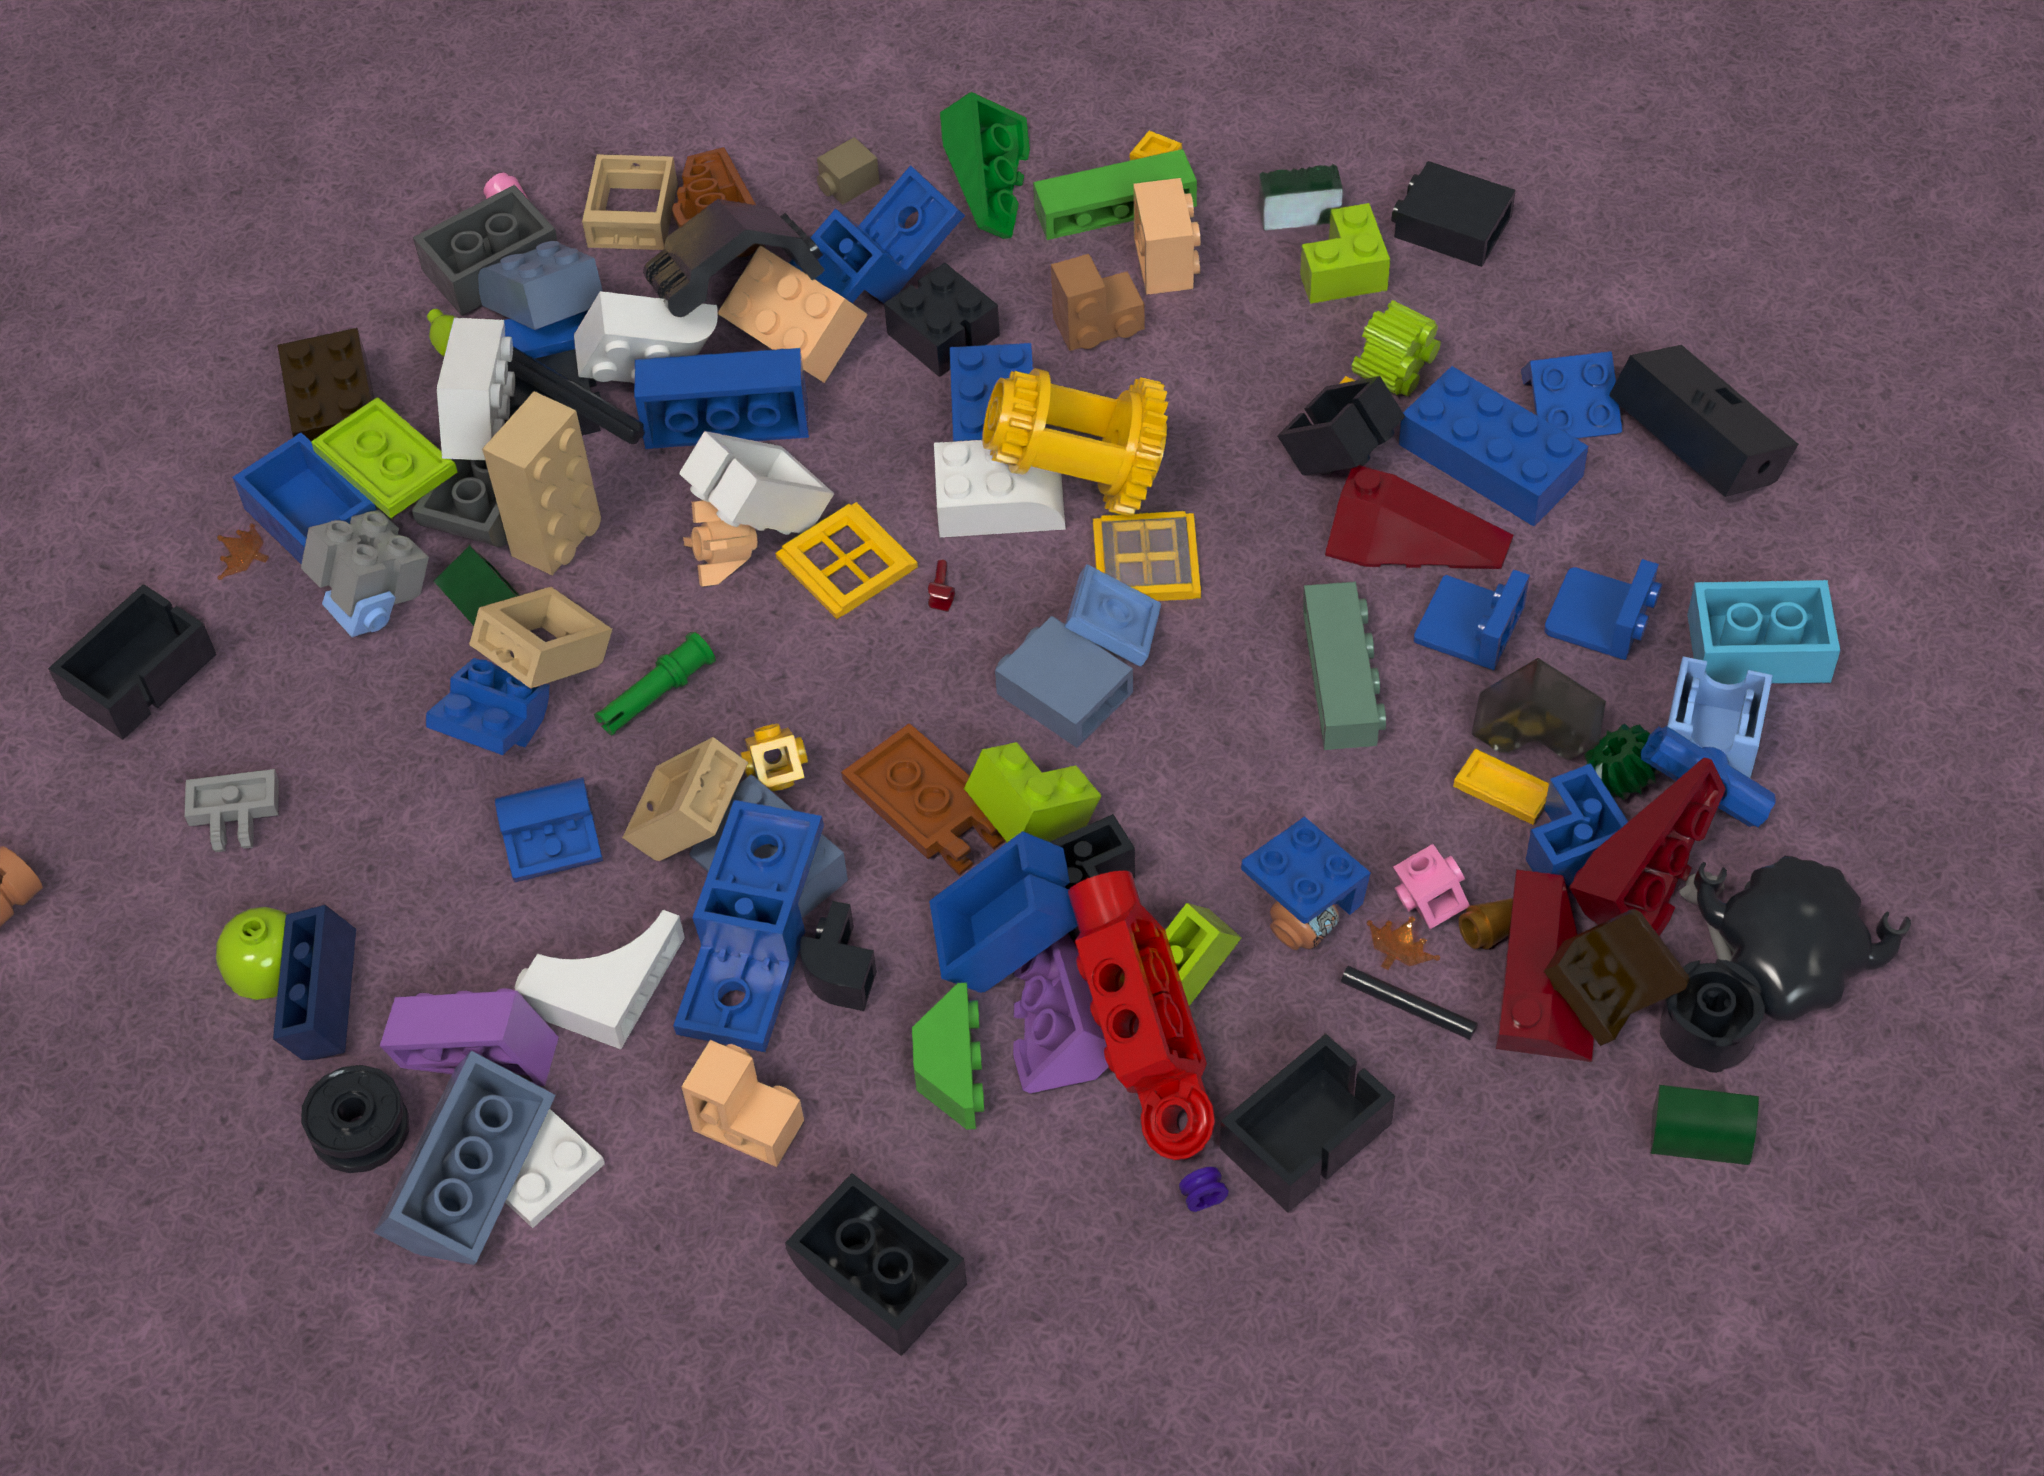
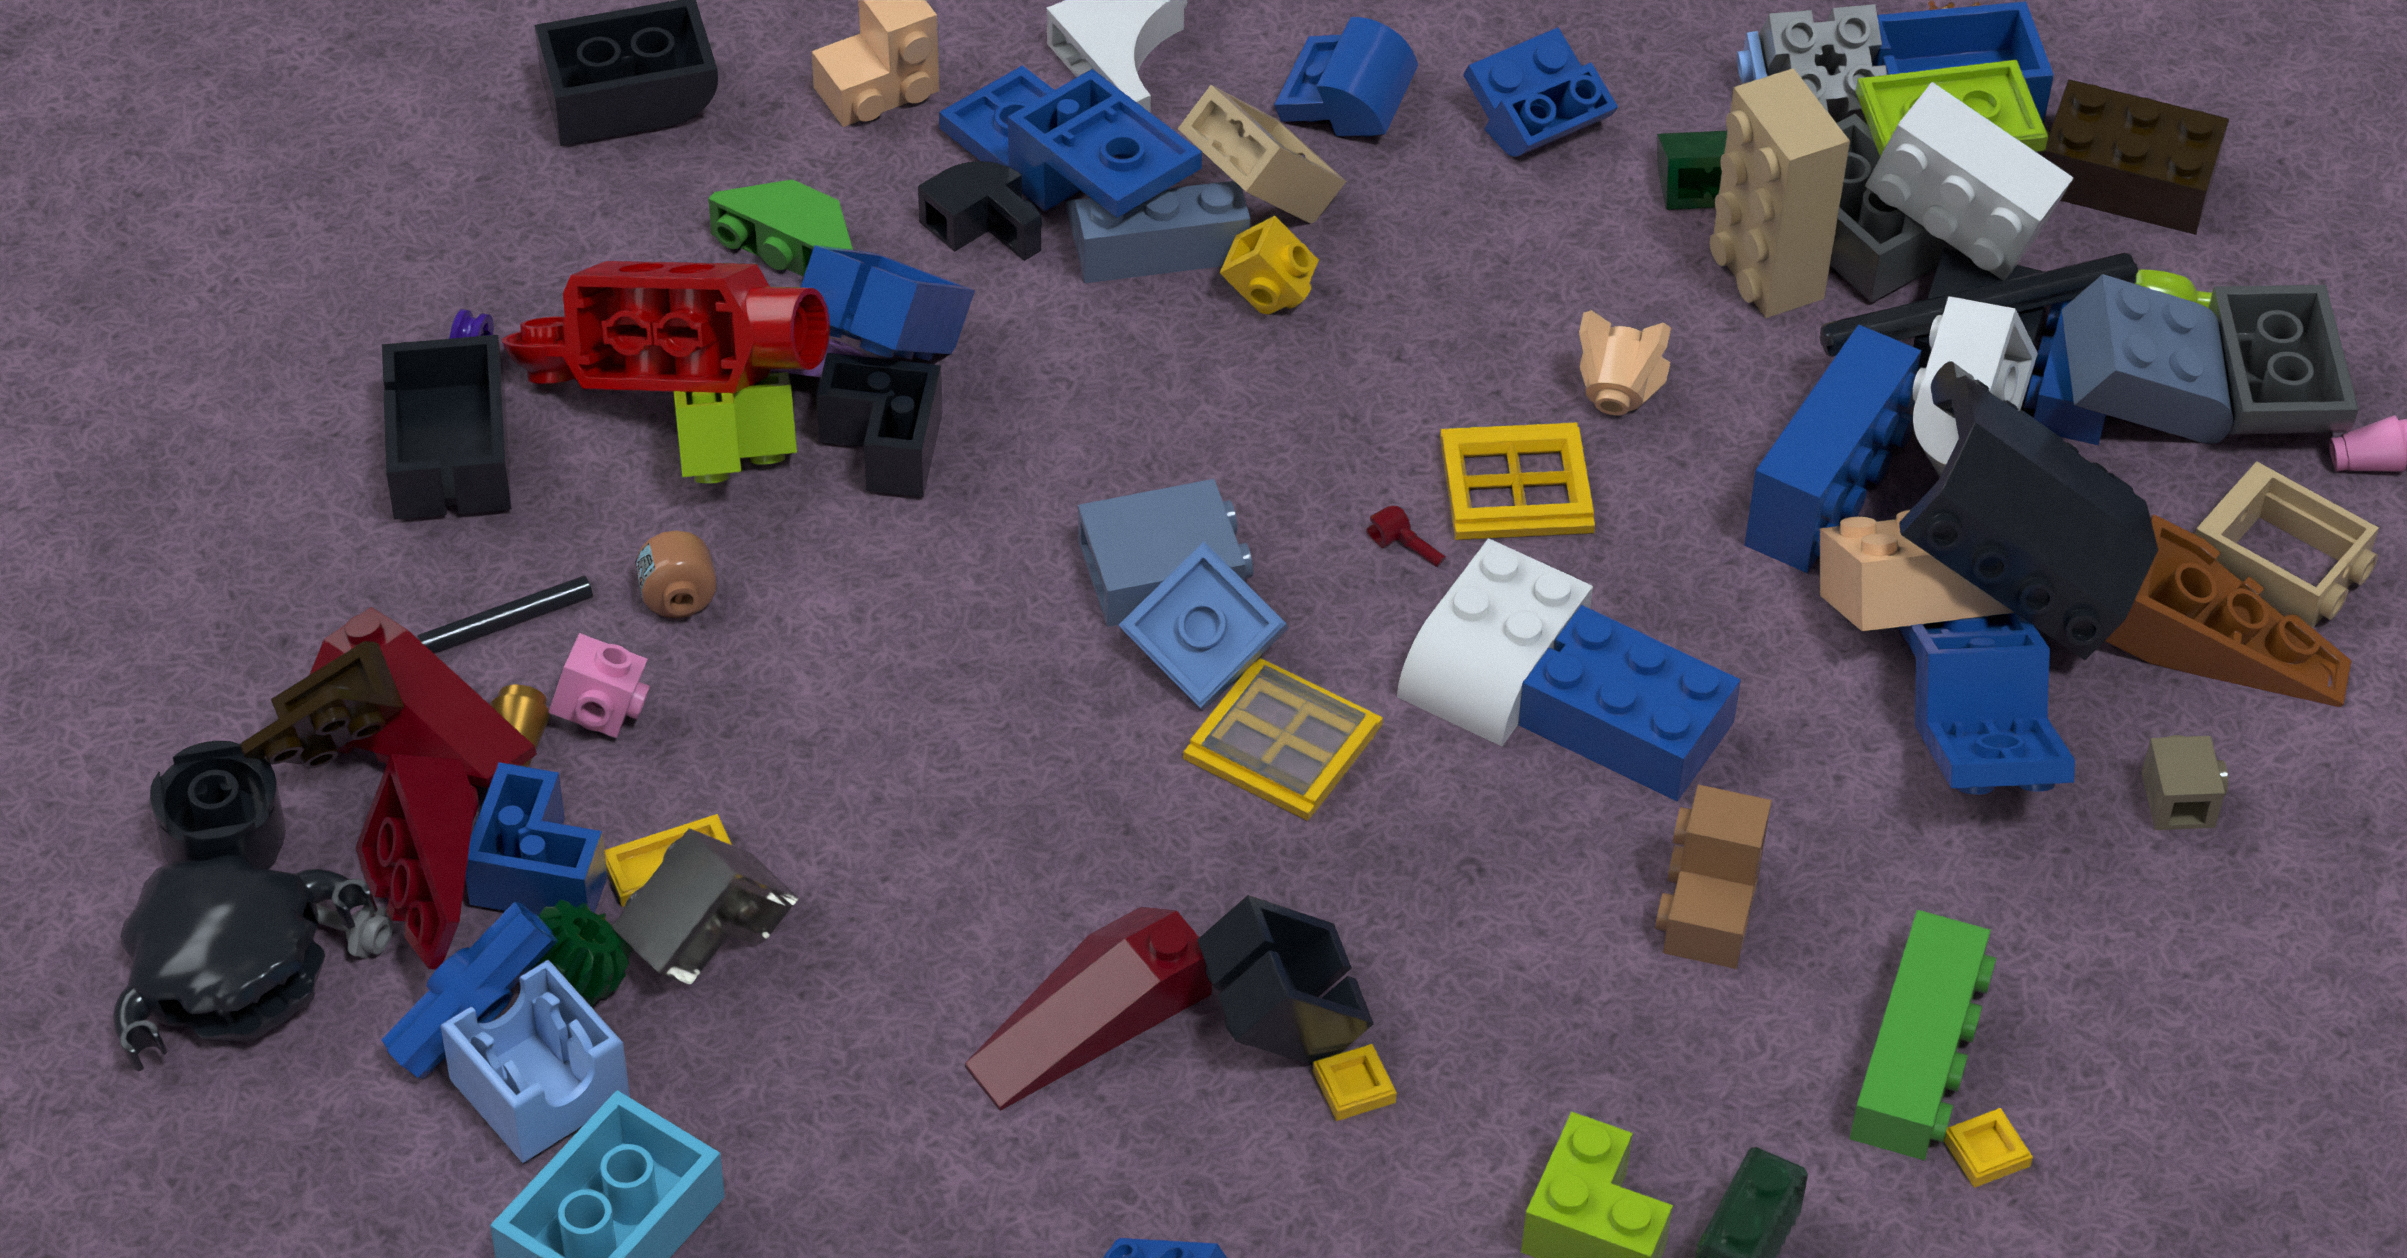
camera: 120 degrees right, 5 degrees down
(507, 628) = (1578, 101): tan window -> none
(669, 672) = (1473, 257): green pin -> none
(755, 484) = (1649, 390): white piece -> none
(921, 796) = (1120, 377): dark orange tile -> none
(934, 315) = (1825, 731): black piece -> none
(985, 151) = (2110, 942): green wedge -> none
(1024, 799) = (1015, 401): lime brick -> none
(1120, 463) = (1412, 731): yellow piece -> none
(1165, 236) = (1774, 1005): light nougat brick -> none
(1307, 872) = (708, 583): blue bracket -> none
(1341, 666) = (957, 800): sand green brick -> none
(1397, 347) = (1371, 1133): lime brick -> none
(1399, 944) = (558, 651): clear orange piece -> none
(1473, 619) = (906, 967): blue bracket -> none
(1493, 445) = (1138, 1149): blue brick -> none
(1603, 610) = (801, 1101): blue bracket -> none
(1704, 1124) = (128, 740): dark green brick -> none

